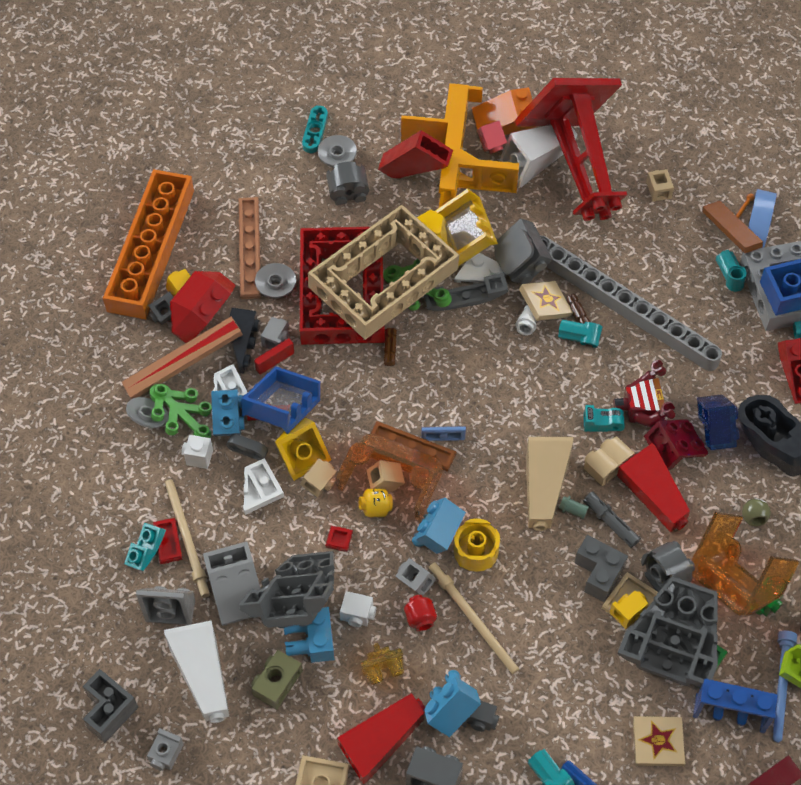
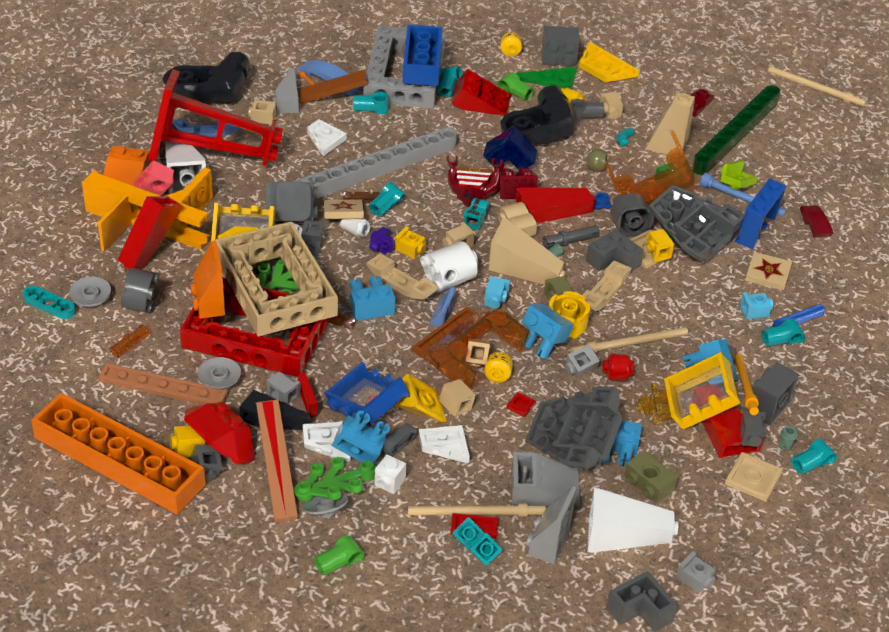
camera: 75 degrees left, 15 degrees down
(95, 444) = (343, 553): none -> bright green piece
(291, 202) = (129, 341): none -> clear orange pin
(344, 225) = (208, 285): none -> orange slope
(359, 759) = (752, 428): none -> dark grey brick
(390, 747) = (750, 399): none -> light orange bar
(397, 695) = (701, 391): none -> yellow window
(418, 367) = (372, 301): none -> dark azure brick
(468, 382) = (403, 283): none -> tan slope
(483, 471) = (496, 292): none -> medium azure brick
(495, 416) = (450, 265): none -> white cylinder
(512, 529) = (556, 286): none -> olive brick
(516, 345) = (381, 241): none -> dark purple piece
(524, 373) = (410, 243): none -> yellow brick
(540, 574) = (606, 288): none -> tan slope
(552, 414) = (461, 233): none -> tan brick
(585, 745) = (756, 305): none -> medium azure brick
(614, 158) = (205, 130): none -> medium blue slope
(654, 249) = (325, 136): none -> white wing
(672, 126) = (212, 83): none -> black piece
(692, 530) = (602, 201): none -> blue plate
(699, 193) = (287, 94): none -> light grey slope

